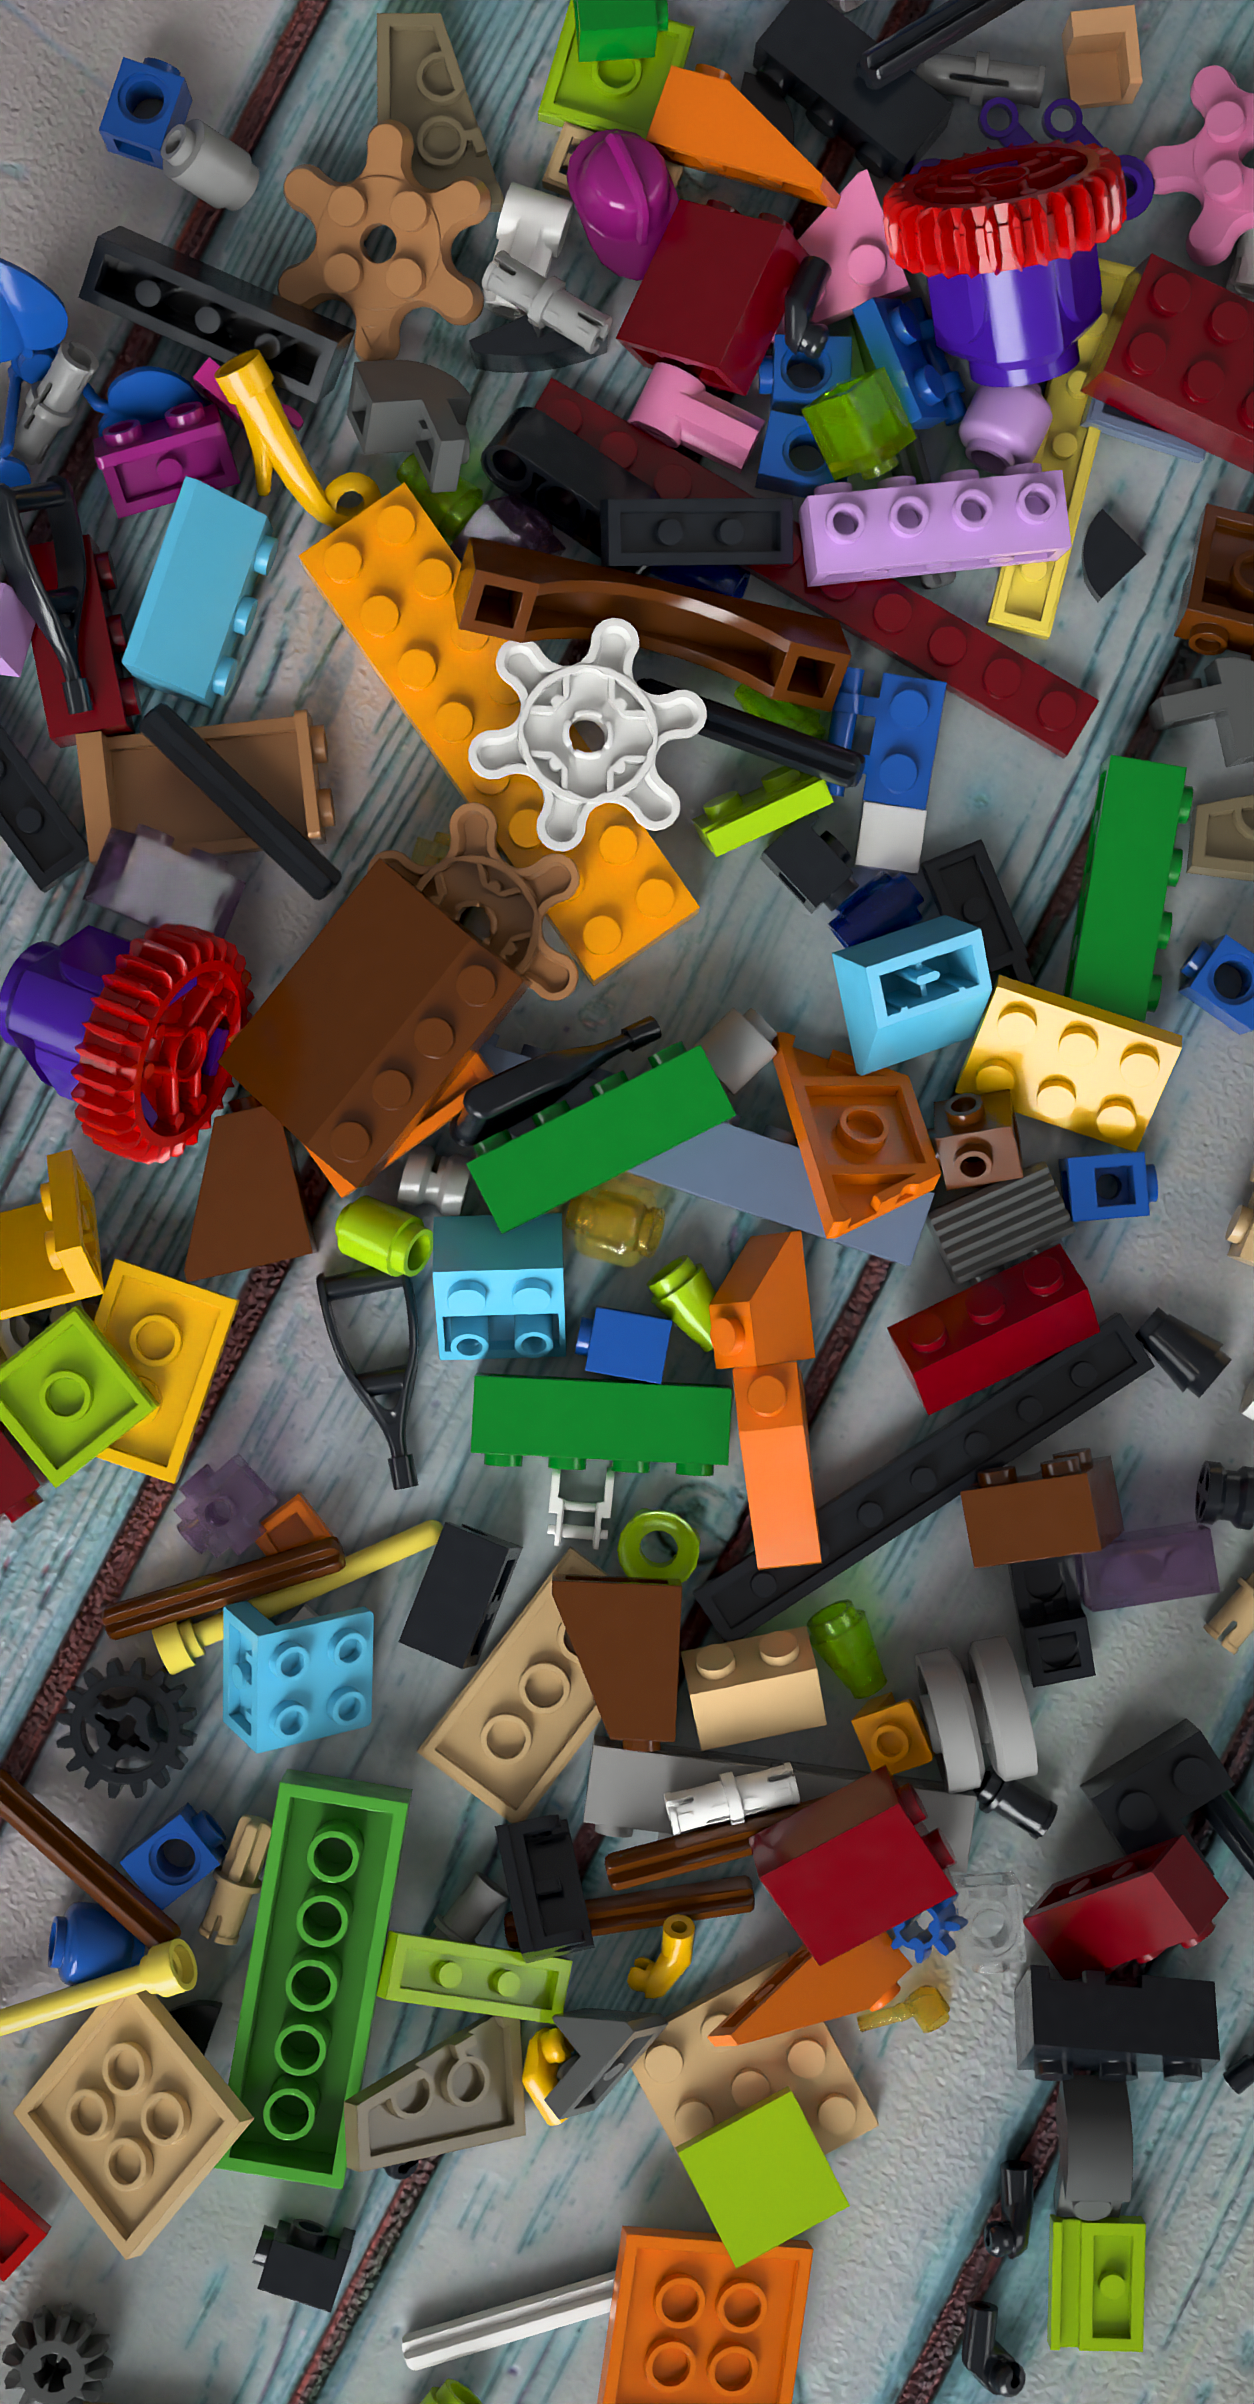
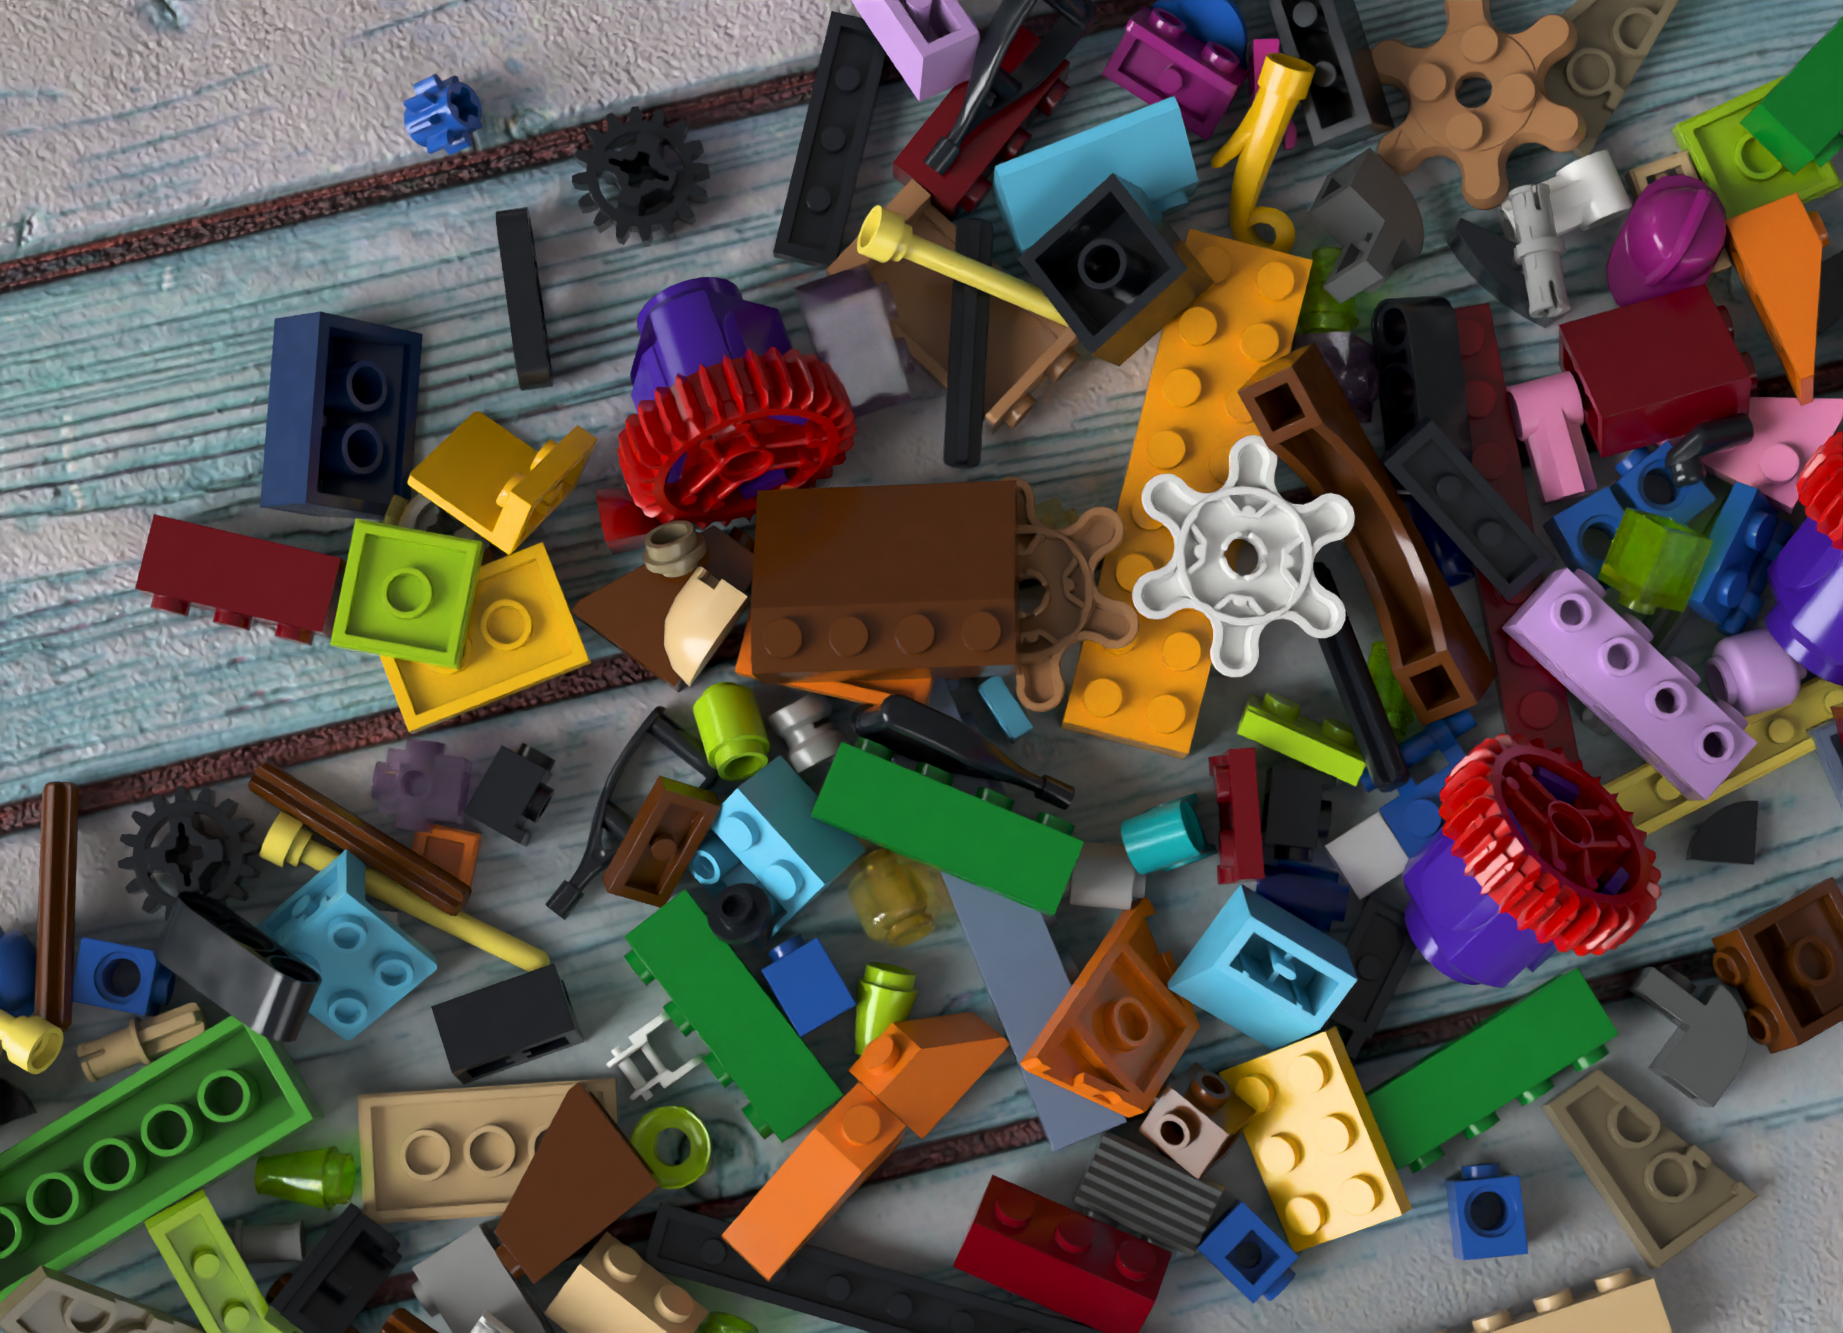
camera: 45 degrees right, 5 degrees down
(106, 792) = (888, 237): none -> light yellow piece
(157, 1183) = (622, 521): none -> red brick
(207, 1163) = (674, 548): none -> dark tan plate
(243, 1765) = (237, 966): none -> black beam
(280, 1191) = (700, 622): none -> tan brick
(282, 640) = (1115, 270): none -> black brick
(288, 1442) = (513, 792): none -> black brick
(423, 1363) = (661, 842): none -> reddish brown plate
(447, 1840) = (308, 1177): none -> clear neon green cone
(531, 1350) = (741, 915): none -> black plate
(544, 1017) = (1004, 709): none -> medium azure tile
(746, 978) = (1166, 836): none -> teal piece
(779, 910) = (1238, 816): none -> dark red plate
(1006, 726) = (1526, 866): none -> red piece

